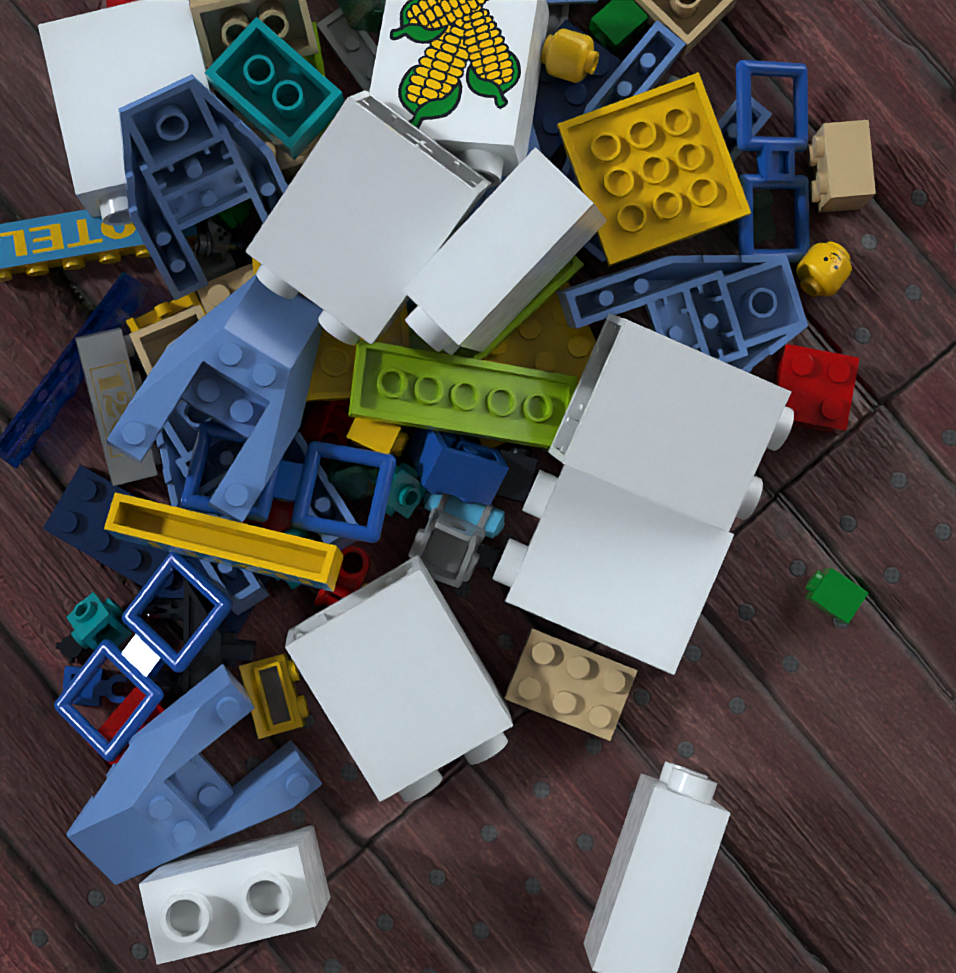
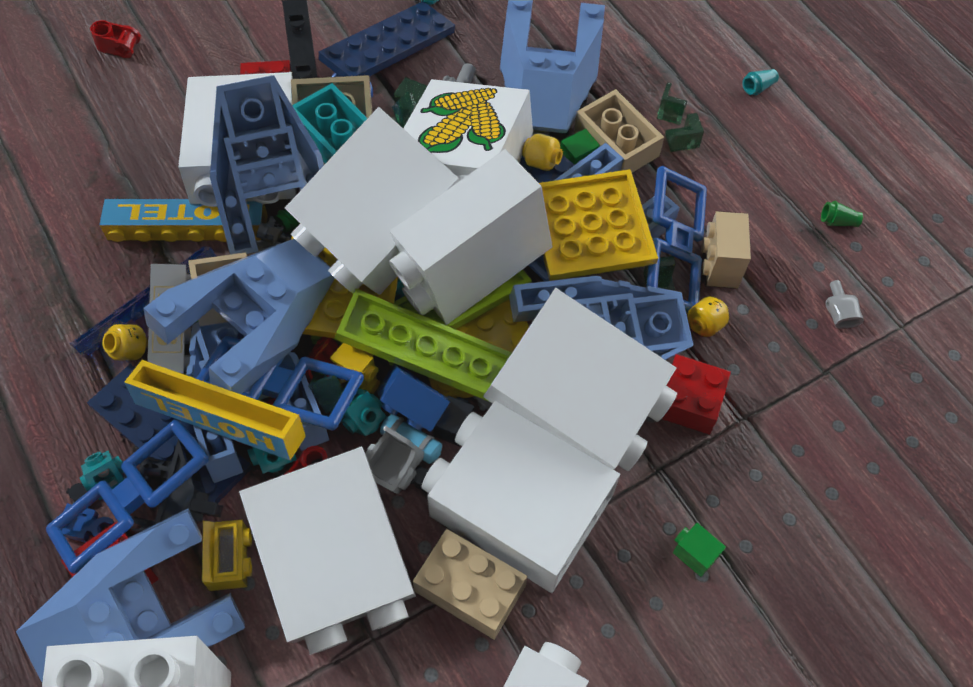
camera: 10 degrees right, 25 degrees down
(67, 440) = (125, 342): none -> yellow head

